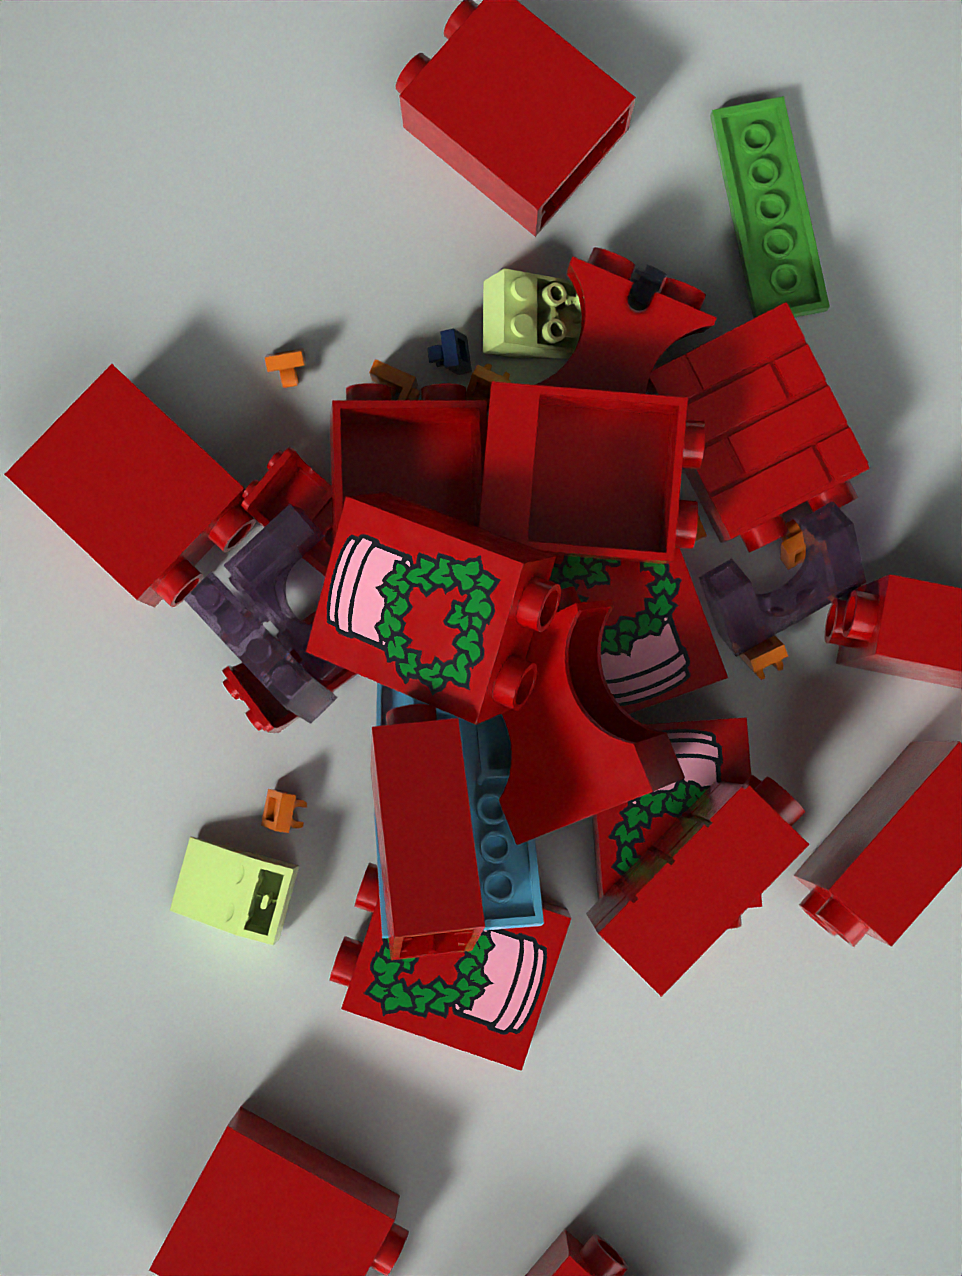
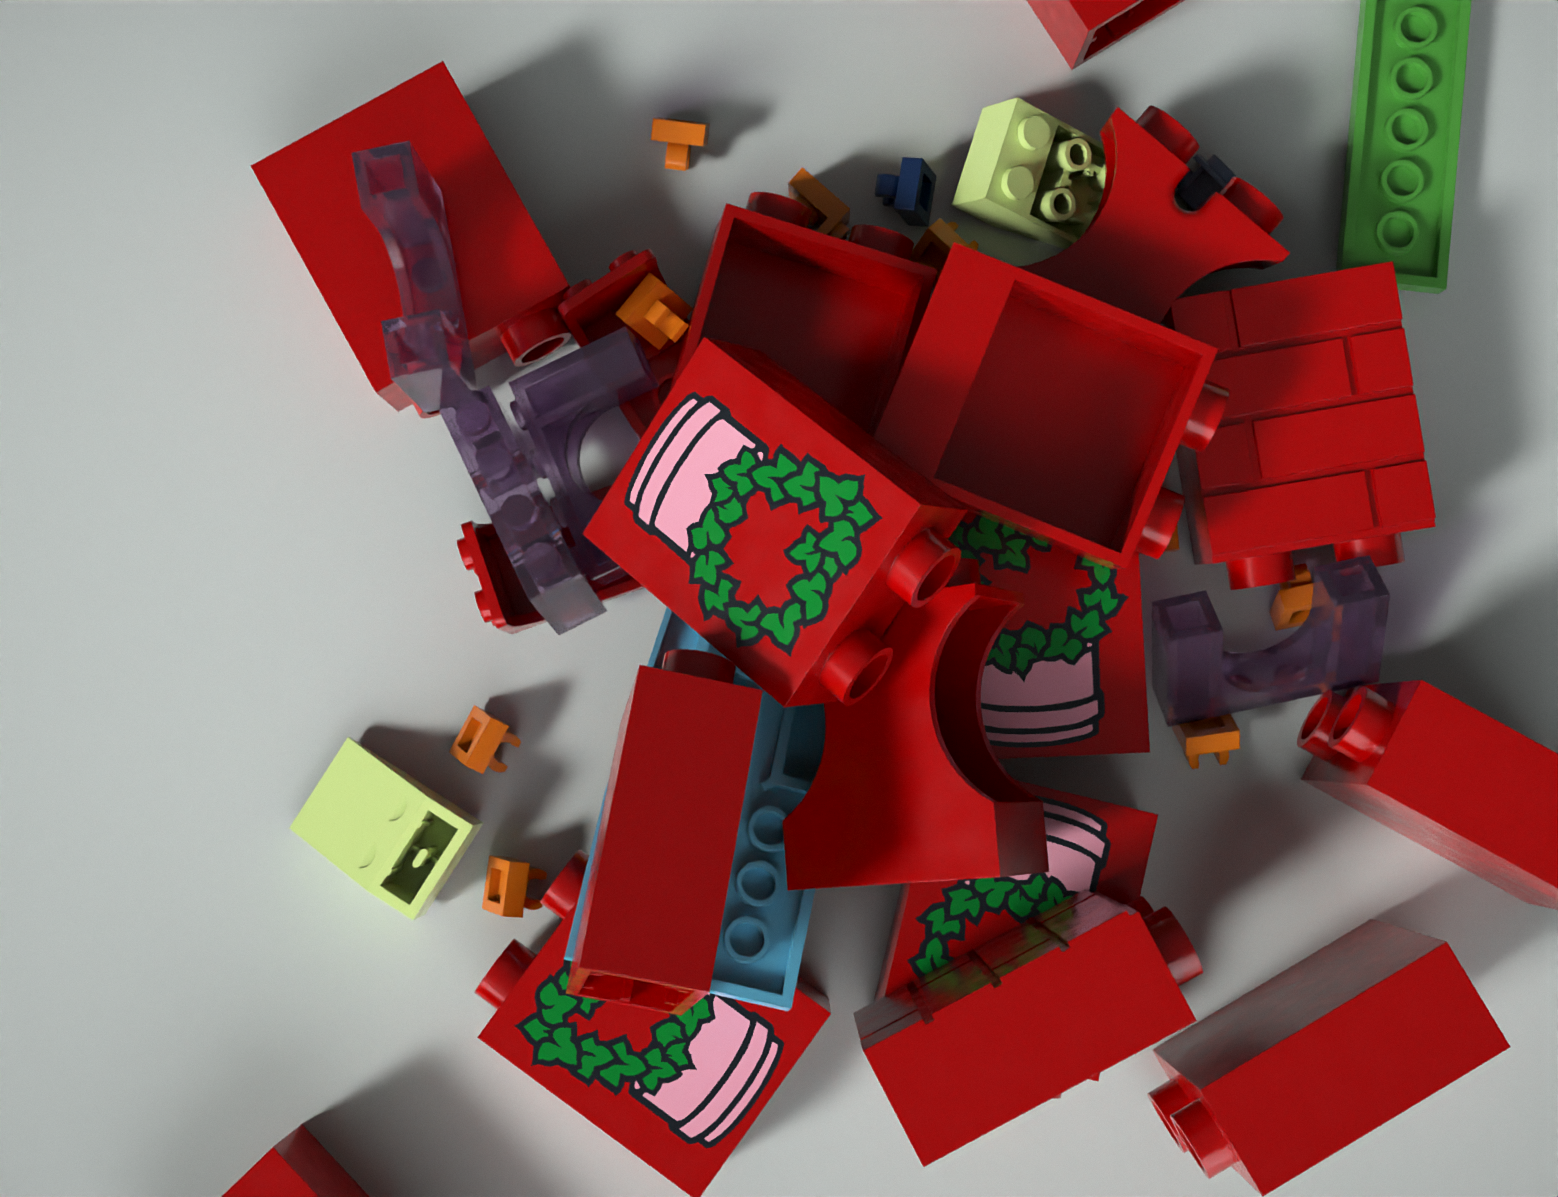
camera: 15 degrees right, 0 degrees up
(163, 553) = (430, 343): none -> clear purple arch
(307, 487) = (655, 312): none -> orange tile
(329, 904) = (507, 886): none -> orange tile

